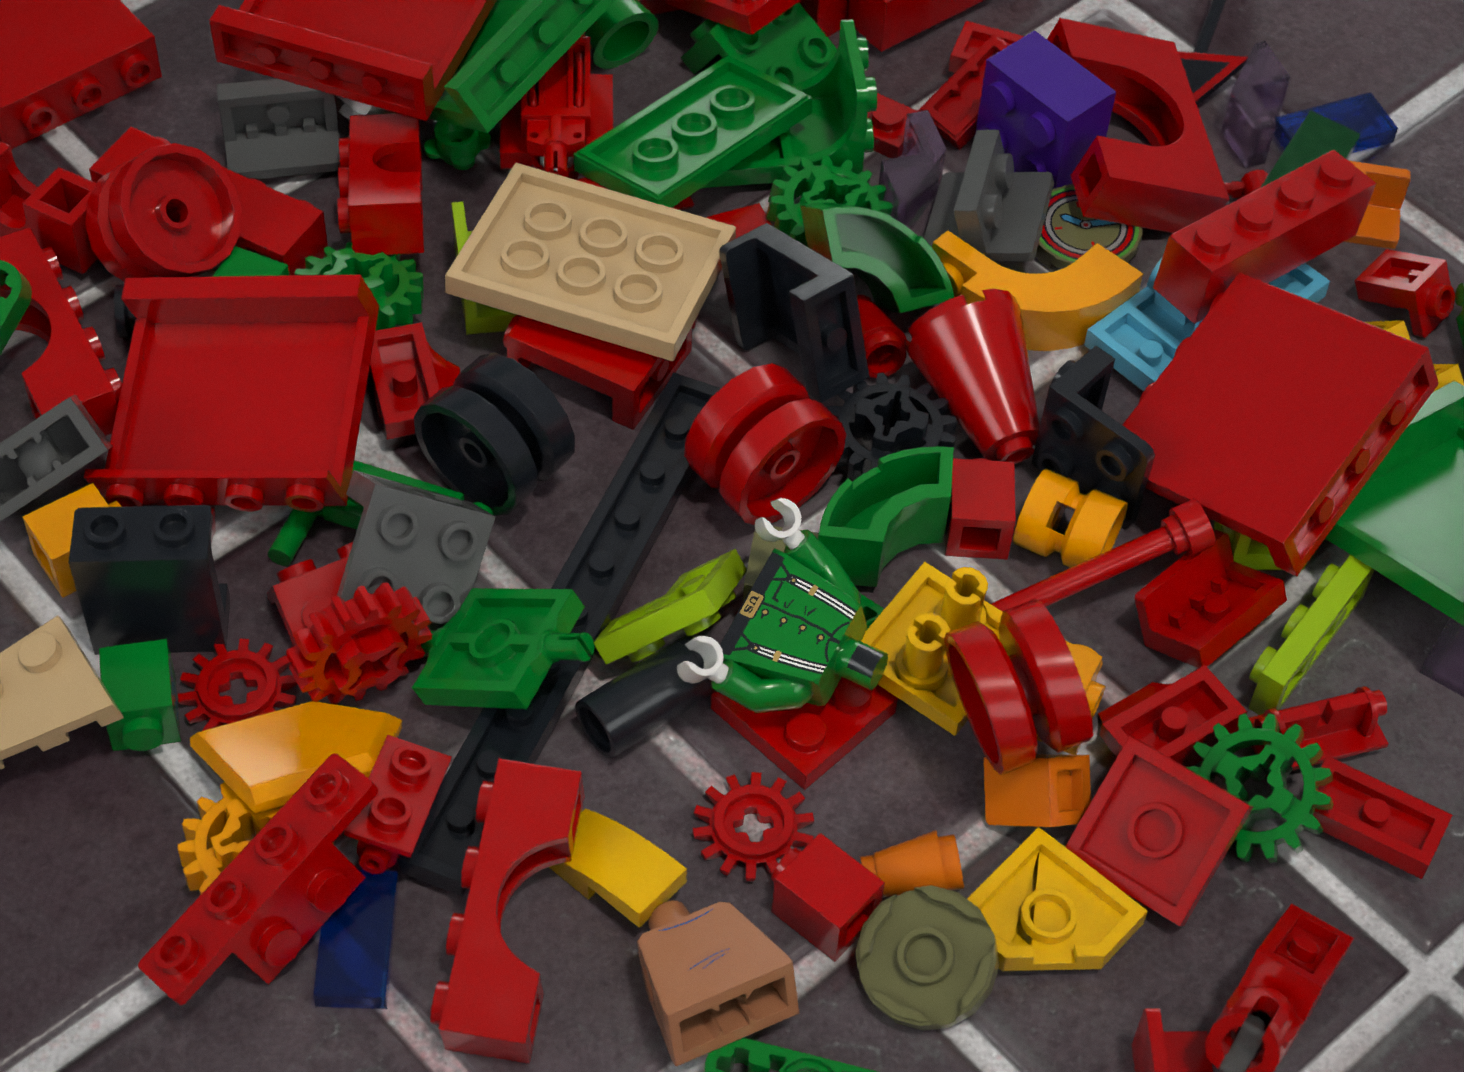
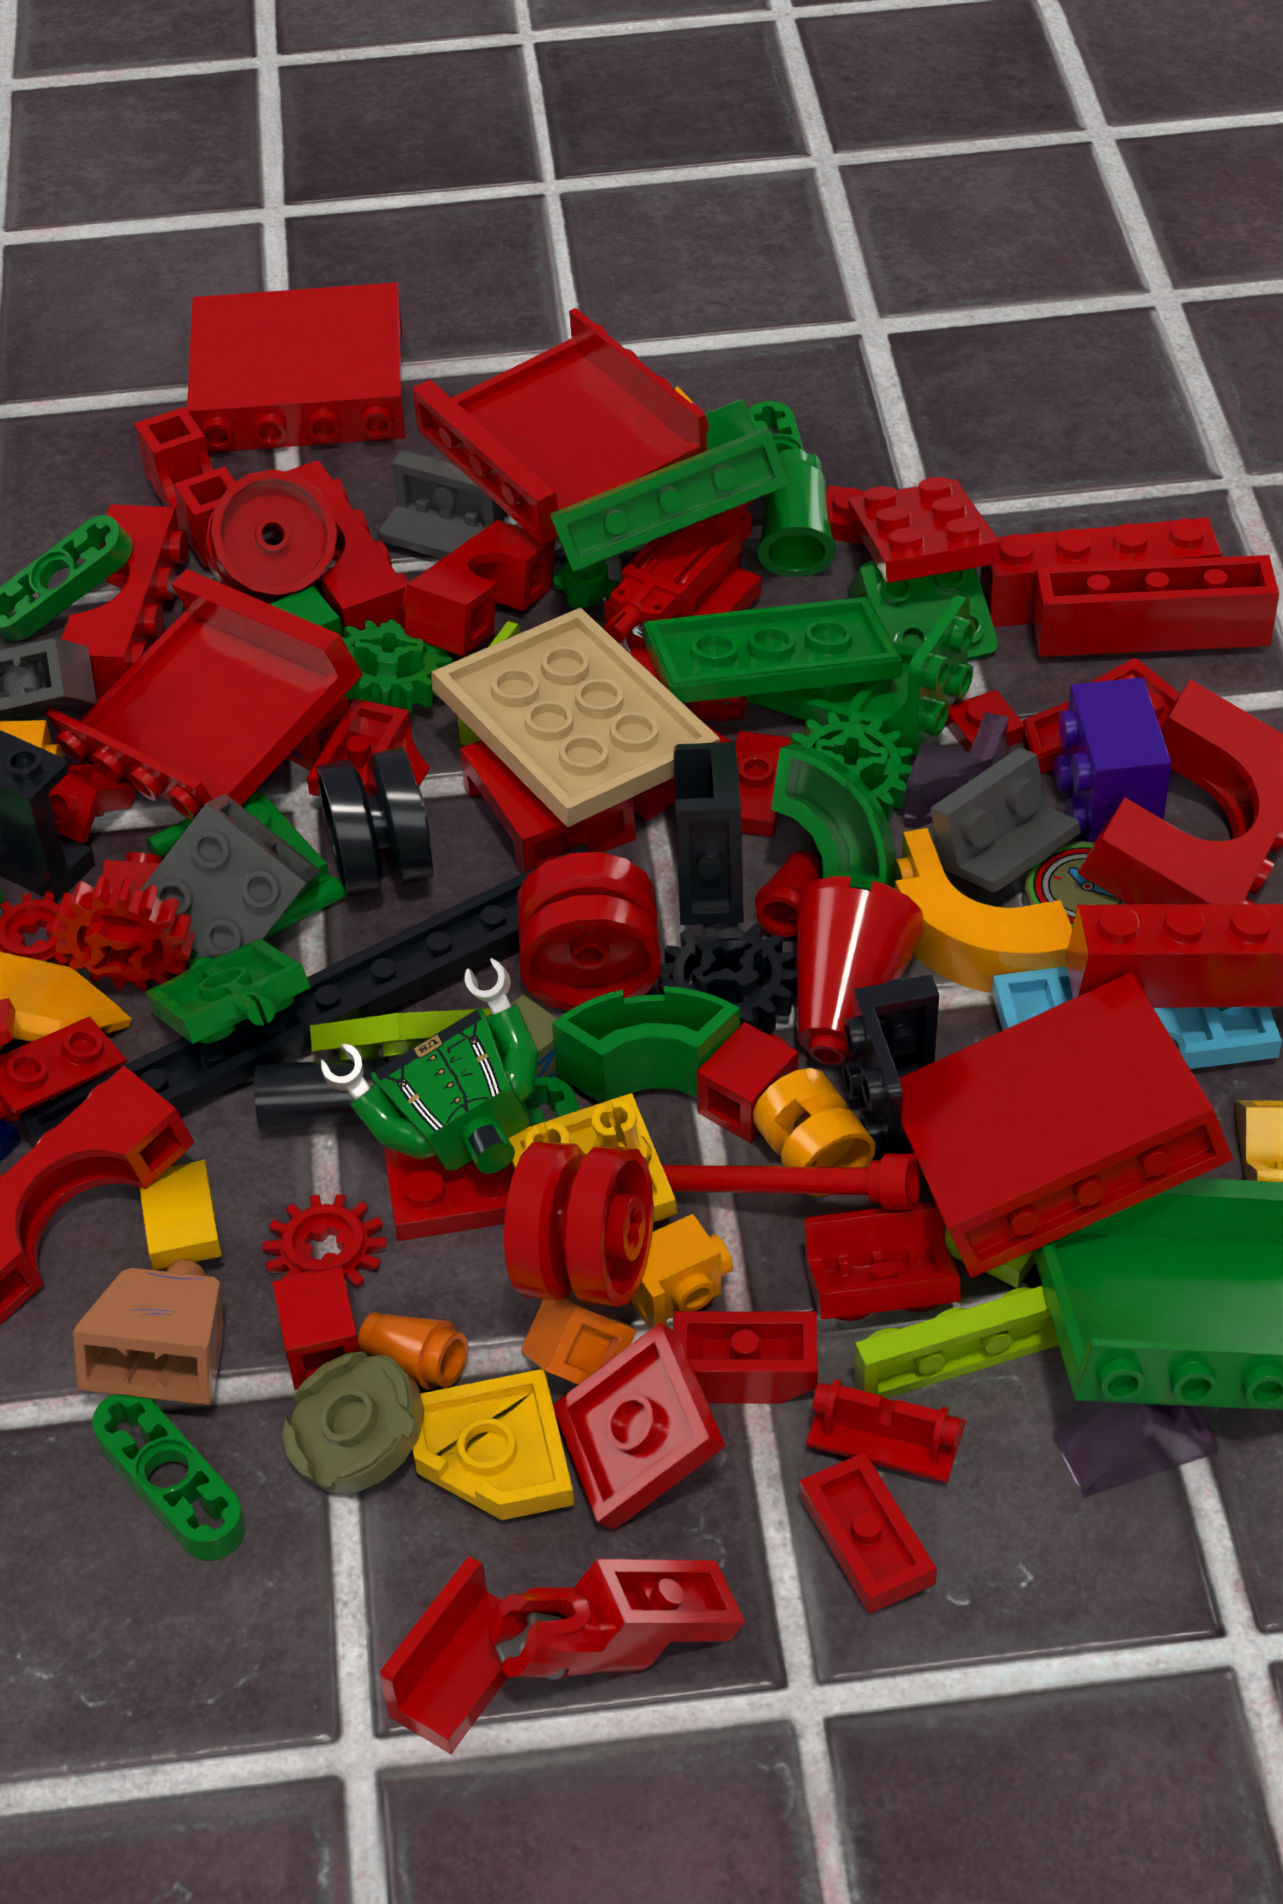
camera: 40 degrees right, 5 degrees down
(1276, 762) = (771, 1442): green gear -> none

